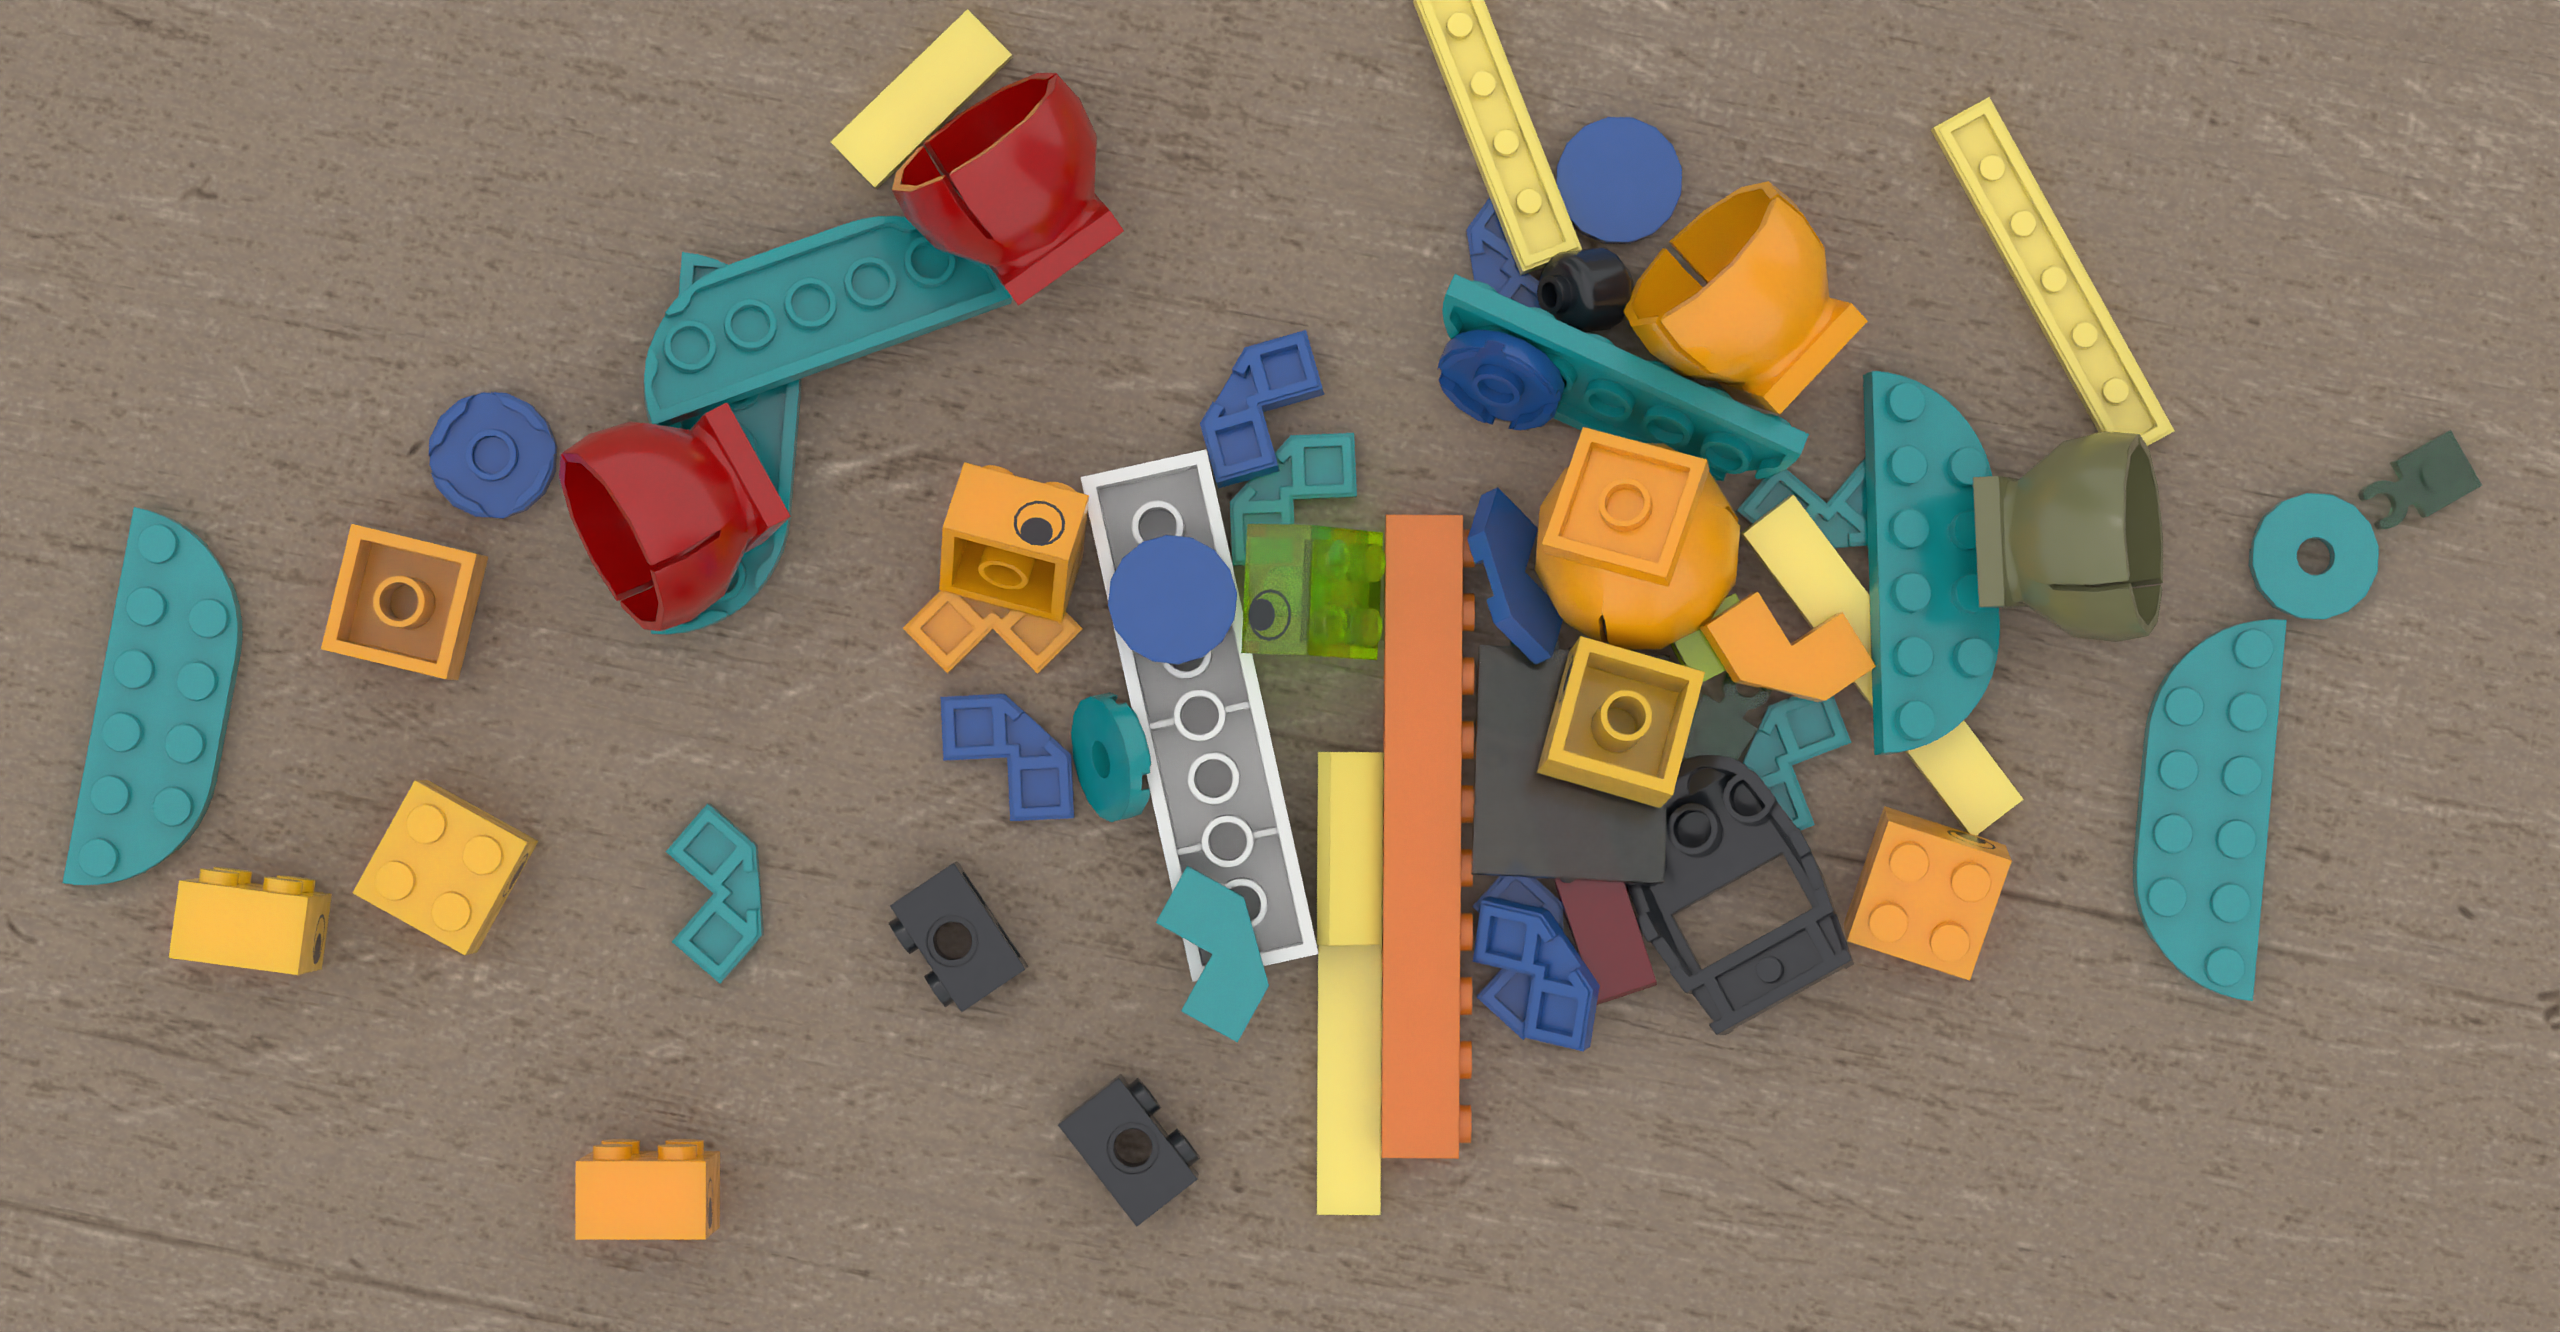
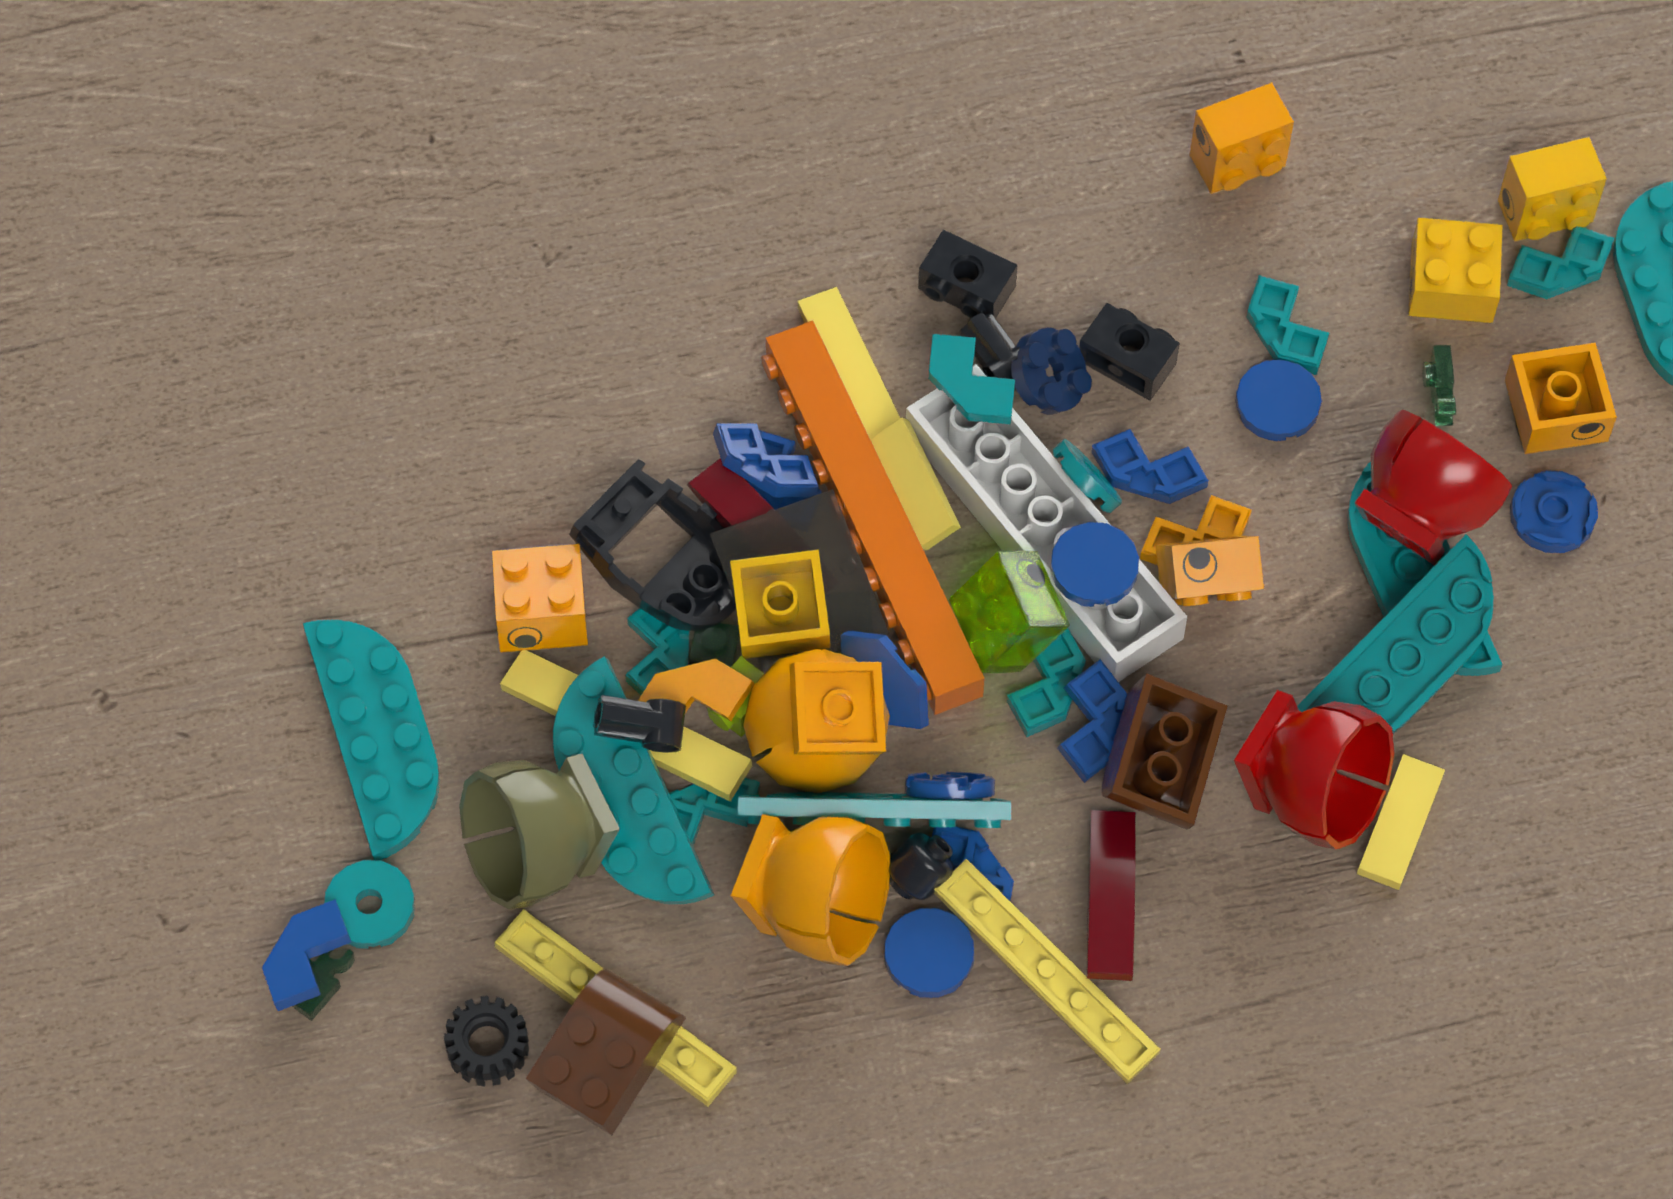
camera: 155 degrees right, 25 degrees down
(312, 814) = (1551, 275): none -> teal tile
(550, 715) = (1439, 376): none -> clear green plate
(784, 781) = (1278, 400): none -> blue tile
(1061, 926) = (1069, 377): none -> dark blue plate
(1139, 993) = (992, 345): none -> black piece
(1203, 302) = (1163, 750): none -> reddish brown brick
(1352, 150) = (1111, 895): none -> dark red slope
(1864, 617) = (653, 723): none -> black piece
(2098, 207) = (605, 1050): none -> reddish brown brick
(2276, 290) = (477, 1016): none -> black tyre
(2459, 498) = (305, 937): none -> blue tile

